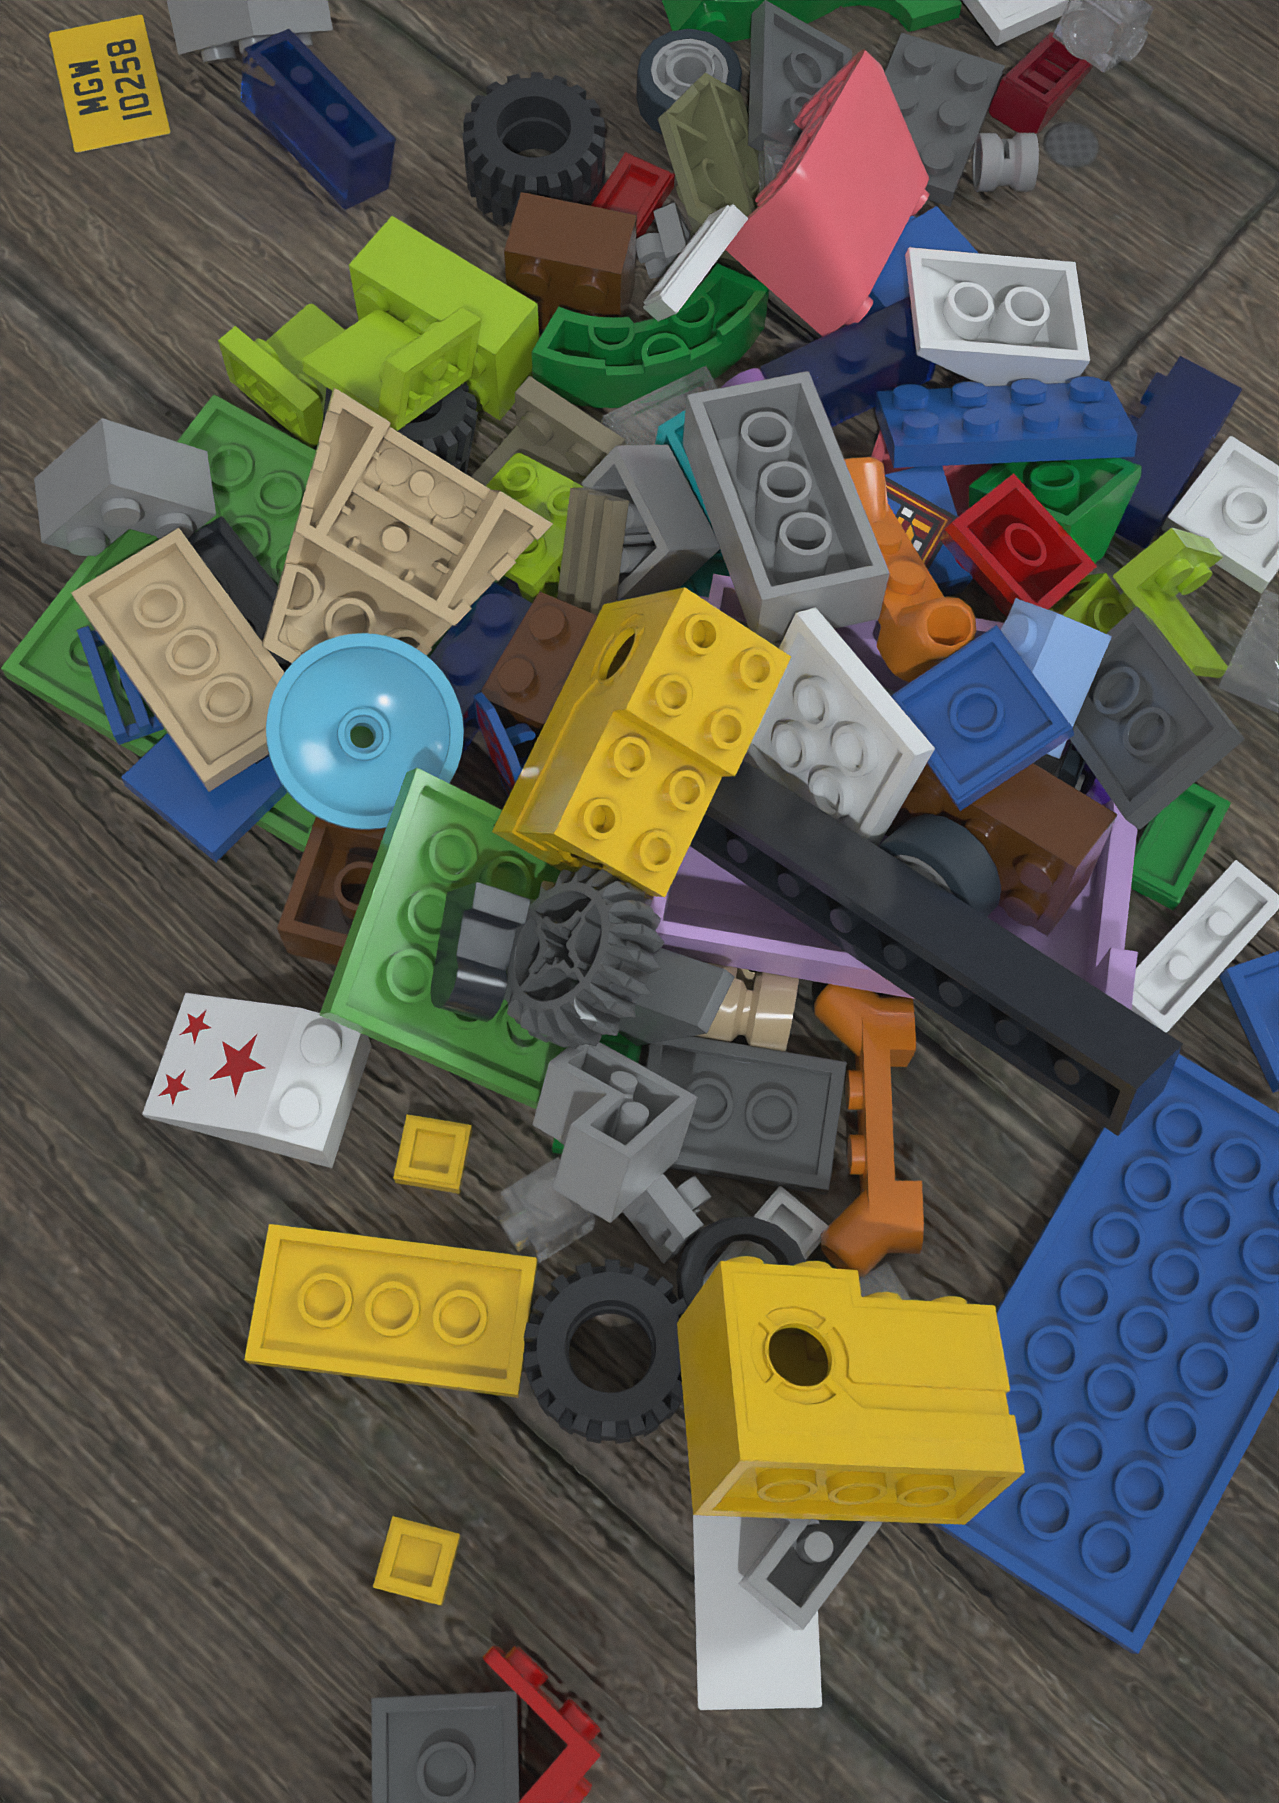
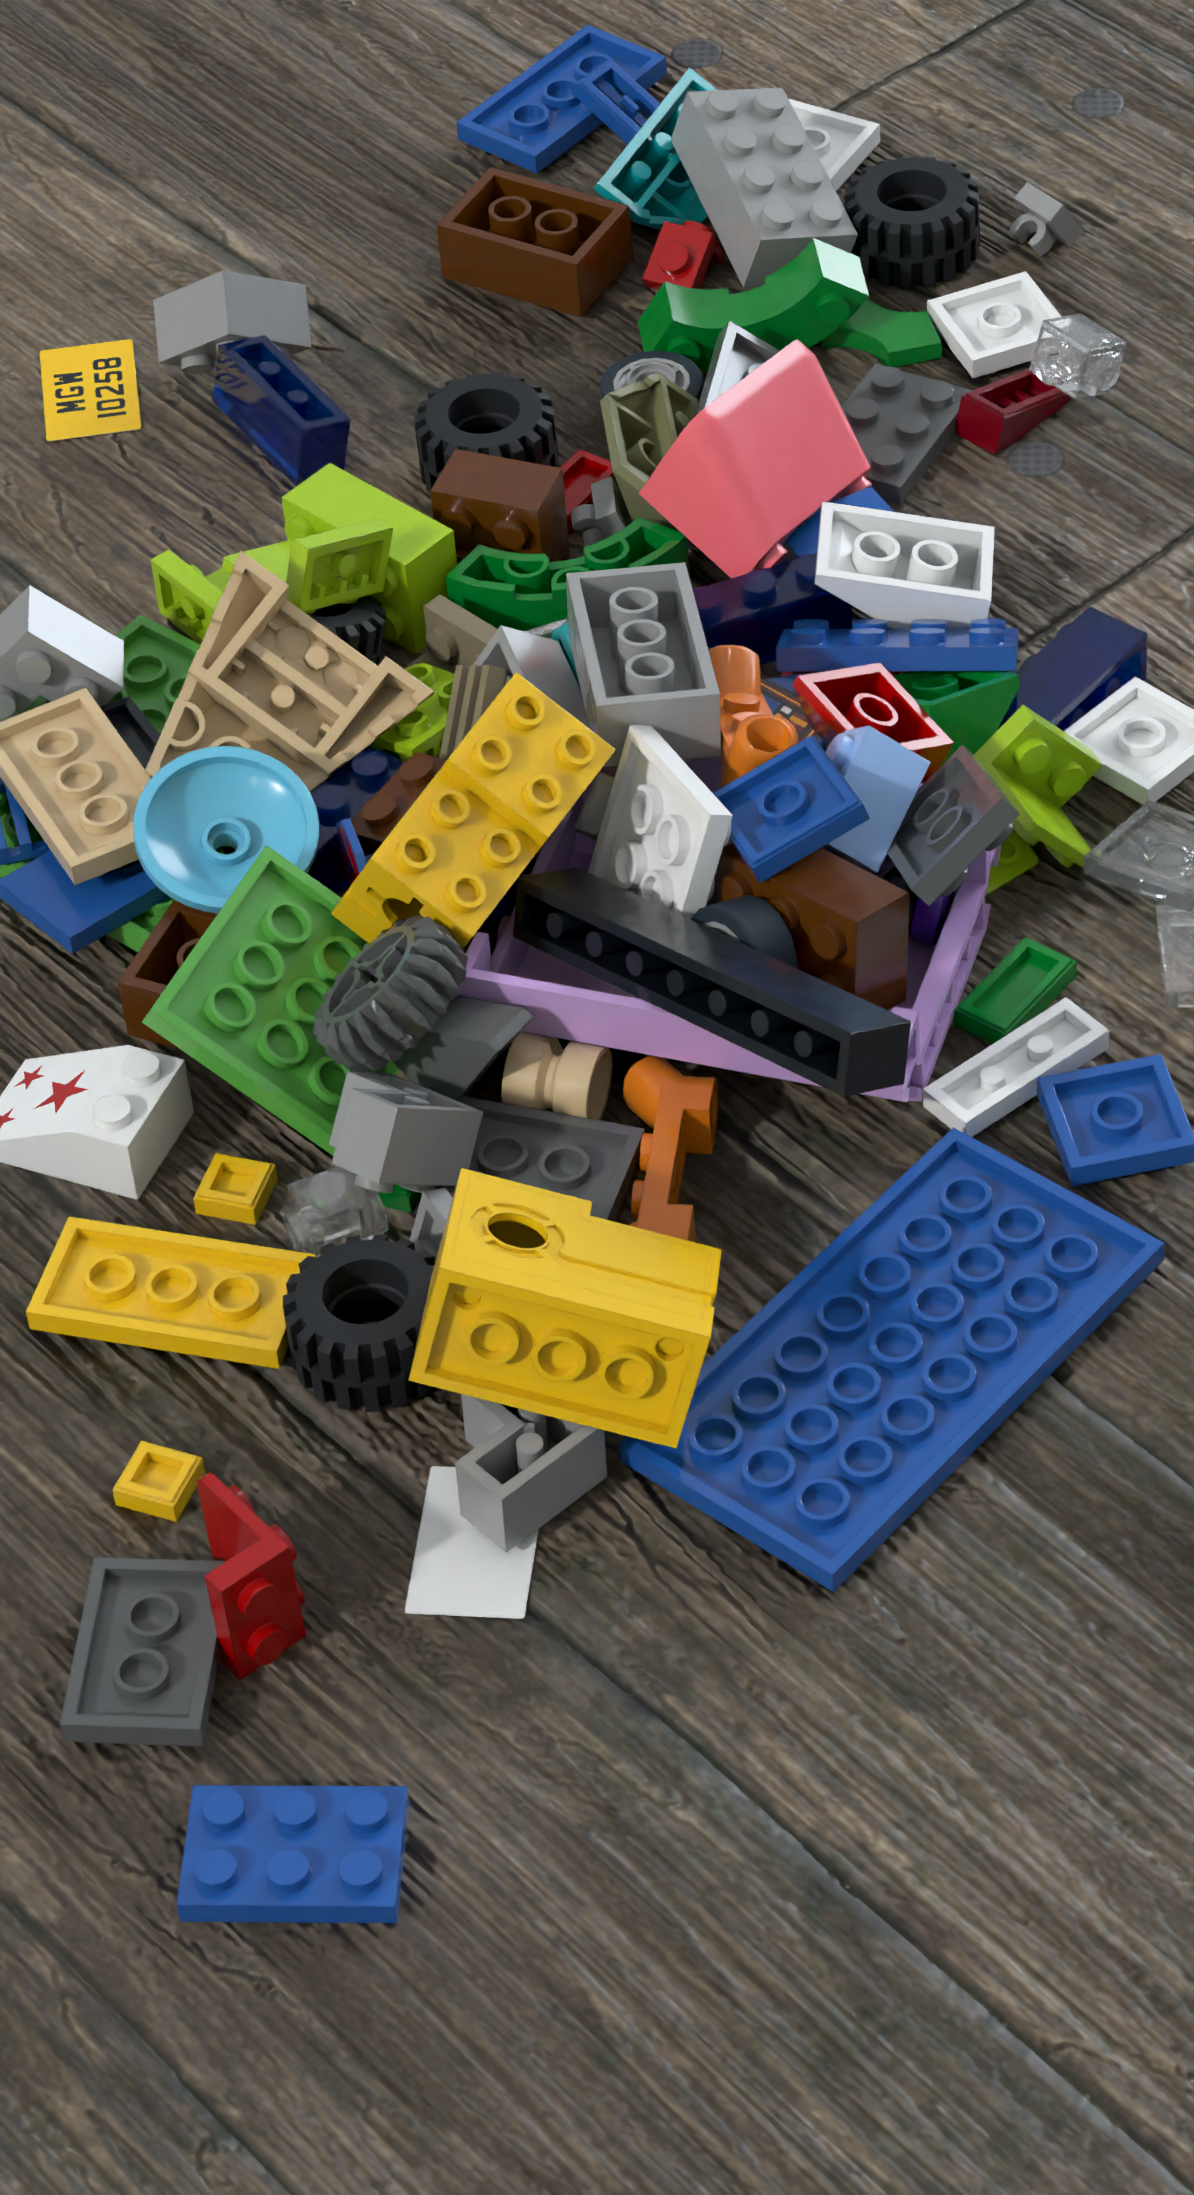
camera: 15 degrees right, 25 degrees down
(476, 949) = (297, 983): black leg -> none
(694, 262) = (607, 502): white tile -> none
(1005, 162) = (956, 463): light grey wheel -> none

